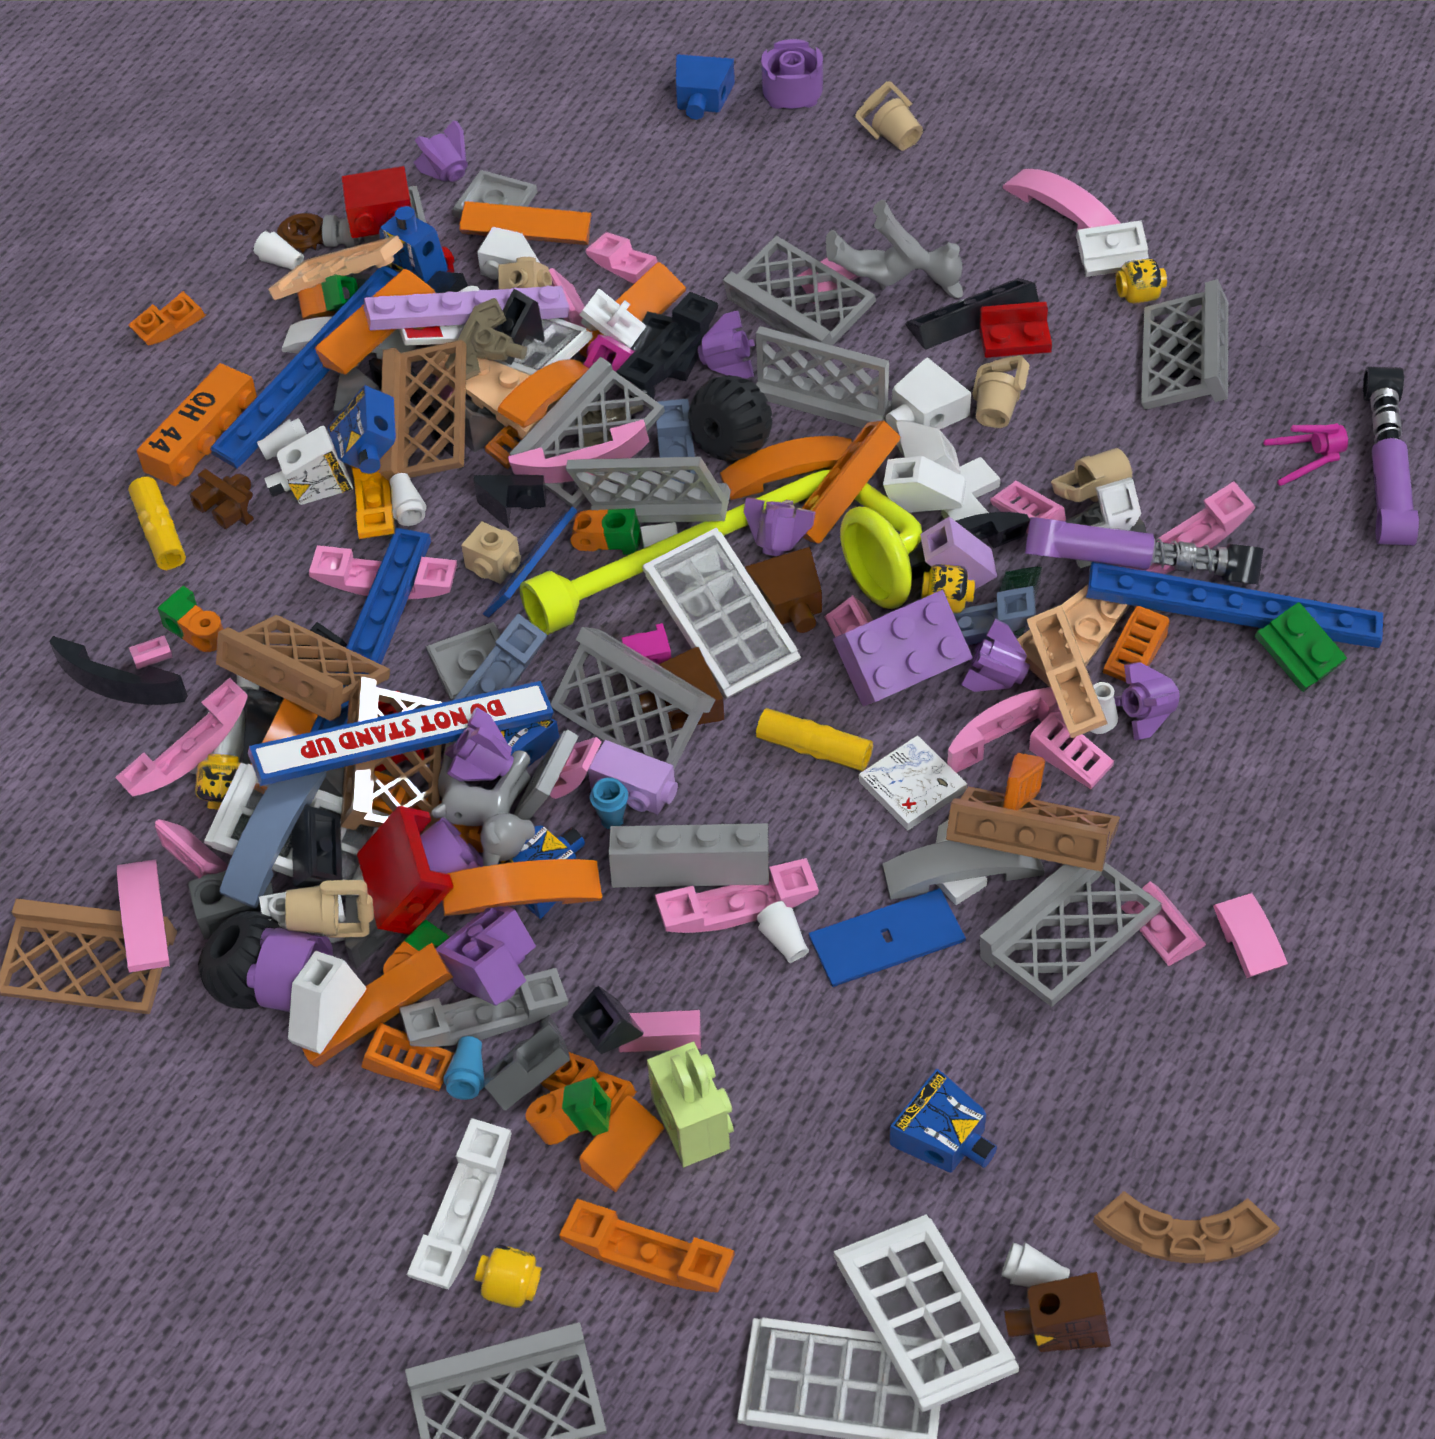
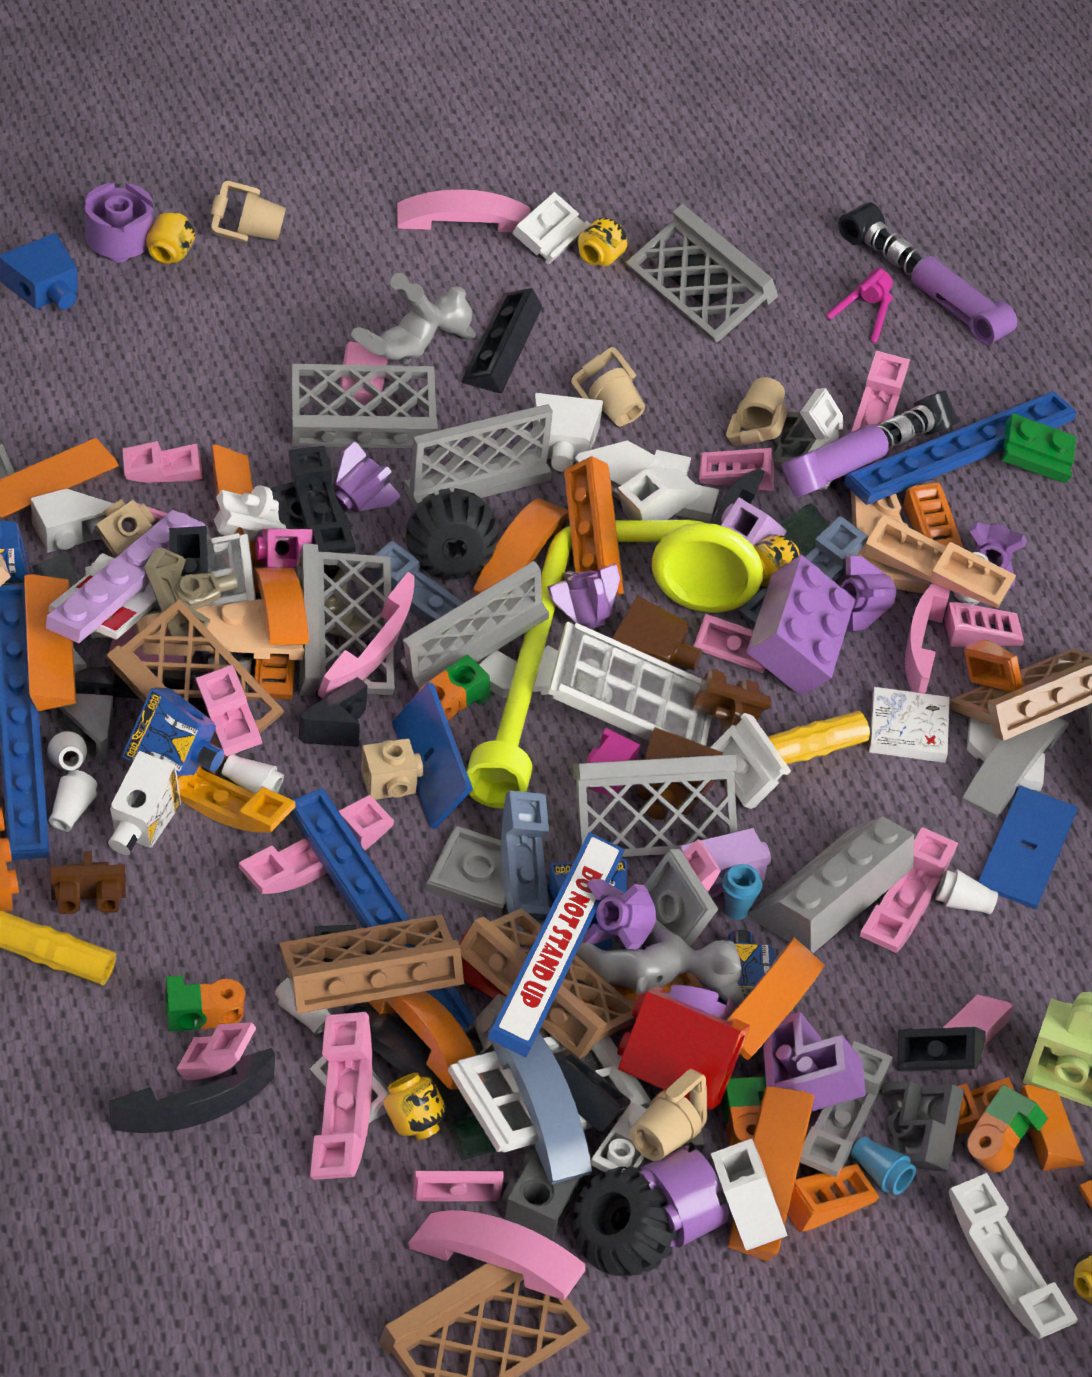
camera: 55 degrees left, 5 degrees down
(314, 406) = (66, 742): none -> white cone
(425, 434) = (229, 710): none -> bright pink slope
(742, 719) = (756, 758): none -> white plate
(779, 671) = (729, 701): none -> reddish brown hips
(817, 105) = (170, 238): none -> yellow head
(1015, 329) = (557, 336): red bracket -> none

